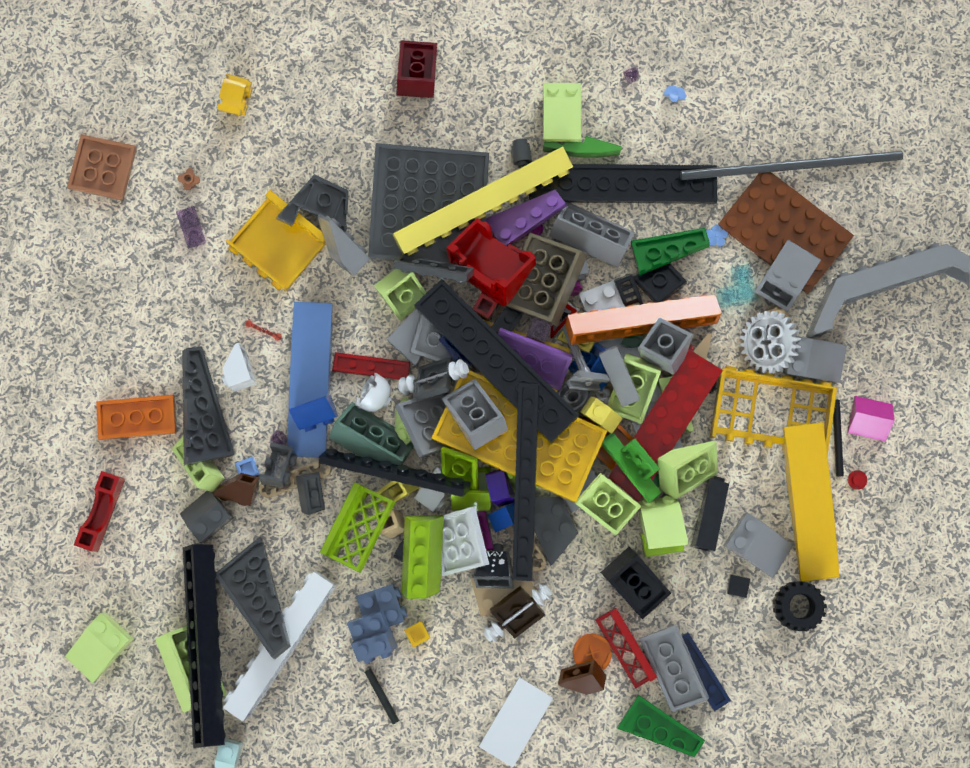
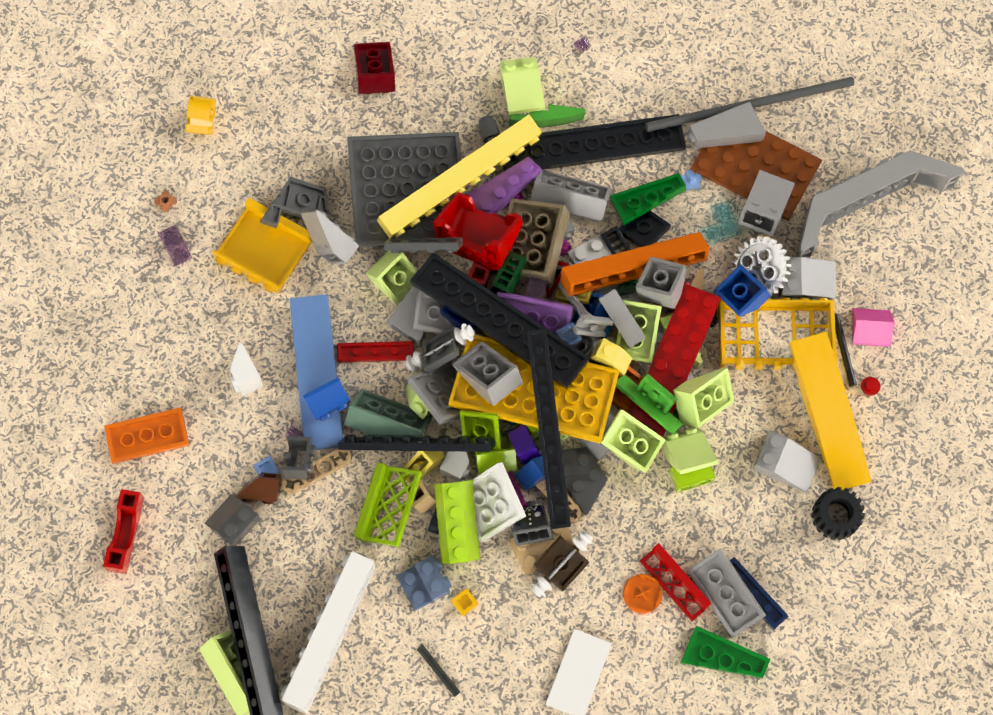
camera: 15 degrees left, 10 degrees down
(98, 646) = (140, 668): yellowish green slope -> none
(102, 167) = (77, 202): nougat plate -> none
(203, 421) = (216, 428): dark grey wing -> none
(203, 474) = (216, 471): yellowish green slope -> none
(253, 591) = (293, 583): dark grey wing -> none
(277, 336) = (277, 337): clear red hinge -> none
(310, 493) = (334, 481): dark grey slope -> none
(371, 637) = (419, 611): sand blue plate -> none
(375, 394) = (383, 375): white cylinder -> none
(501, 320) = (515, 274): none -> dark green slope
(560, 383) = (568, 335): none -> light blue tile
(583, 678) = (638, 617): reddish brown slope -> none
(635, 582) = (673, 517): black slope -> none
(675, 93) = (627, 55): light blue plant -> none
(710, 515) = (734, 441): black slope -> none
(738, 586) = (774, 505): black tile -> none
(745, 367) = (742, 292): none -> blue slope
(763, 189) = (727, 128): none -> light grey slope

